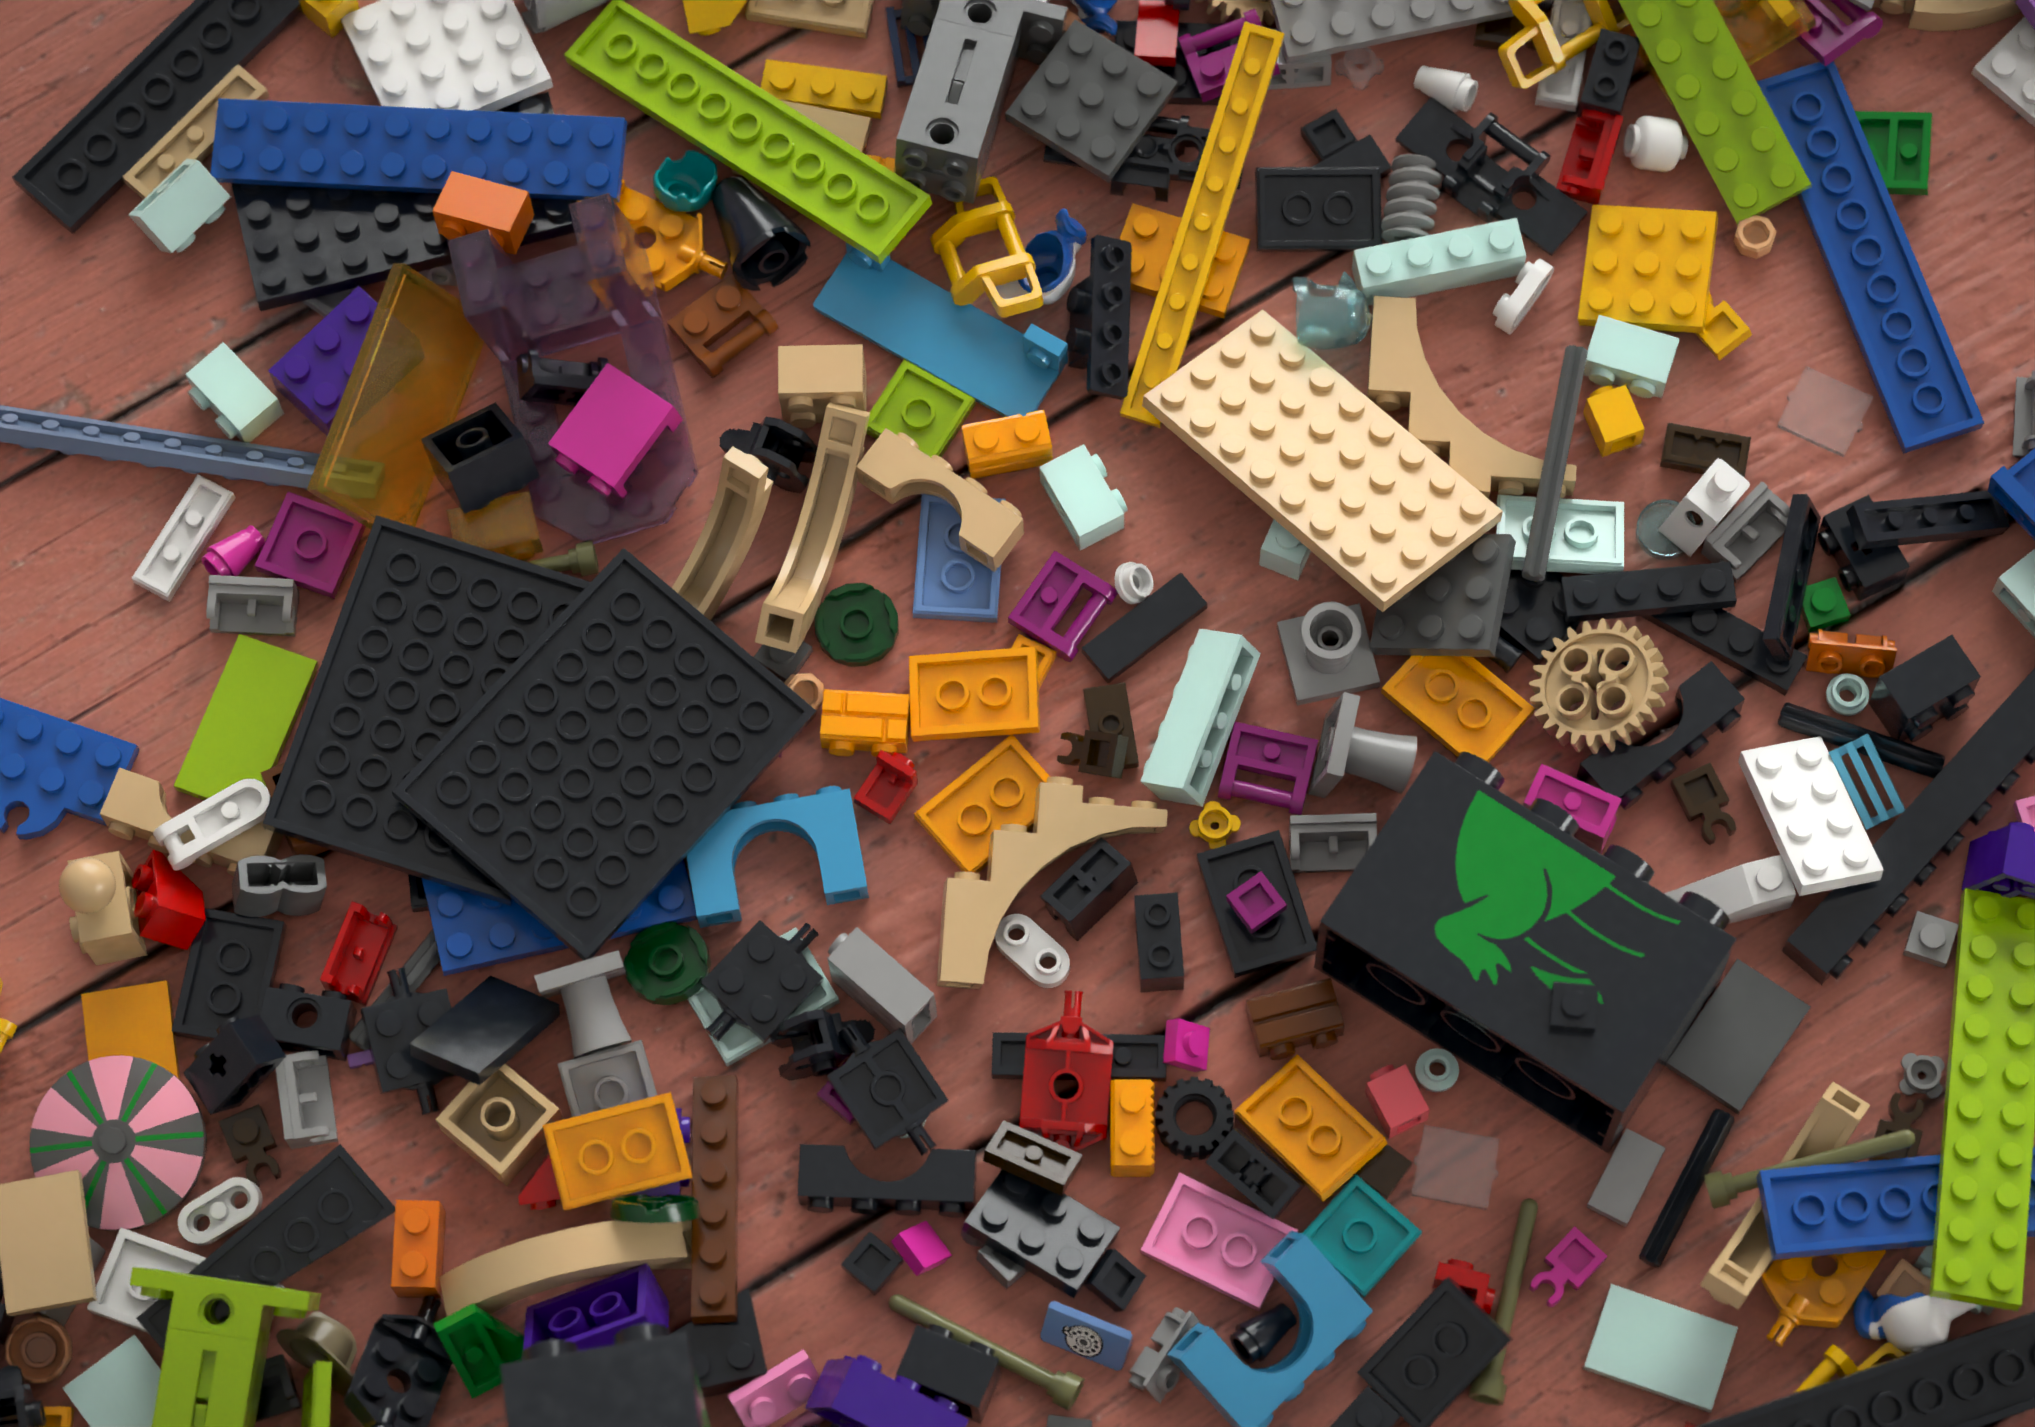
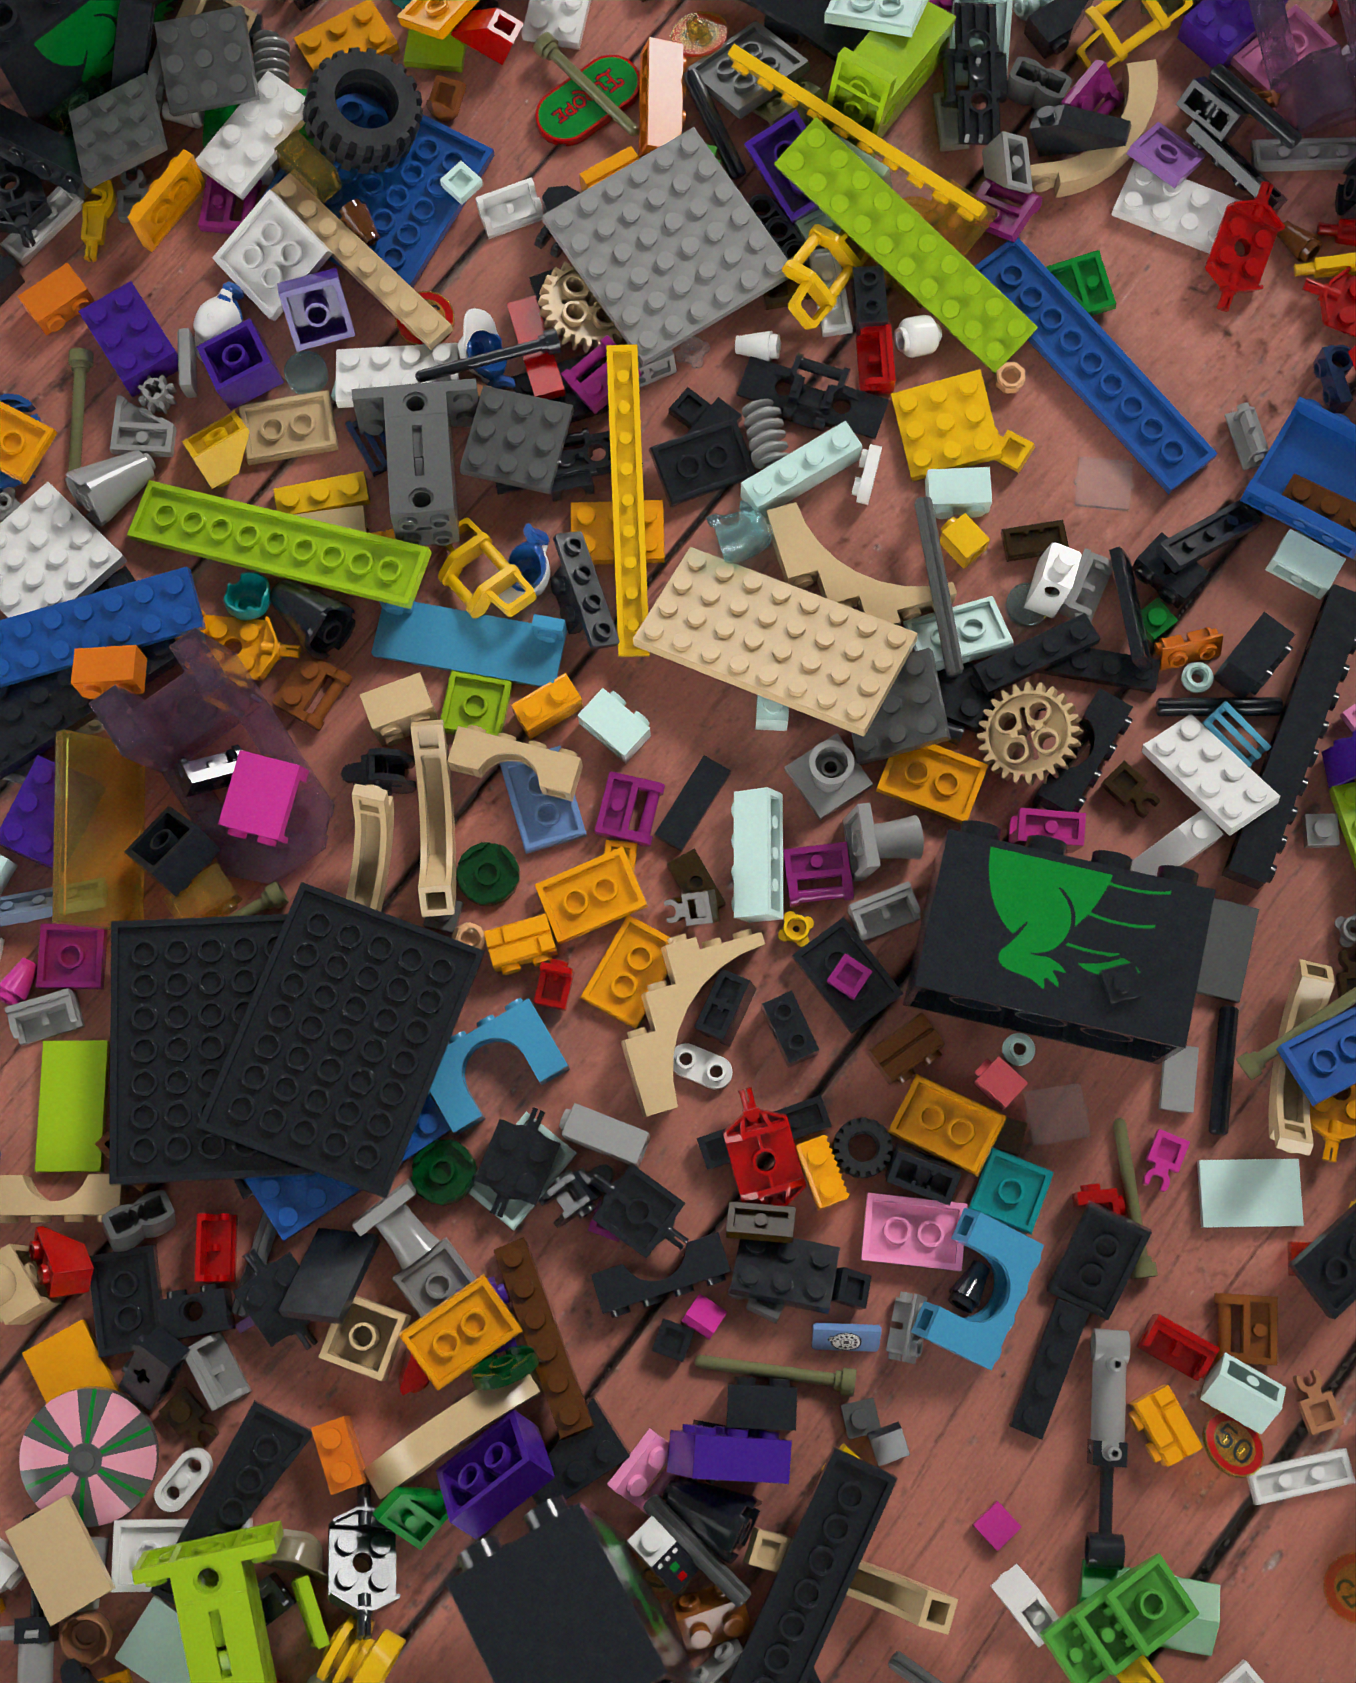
camera: 20 degrees left, 5 degrees up
(214, 821) = (73, 1192): white plate -> none
(1133, 582) = (673, 774): white plate -> none
(1186, 1045) = (837, 1096): dark pink plate -> none

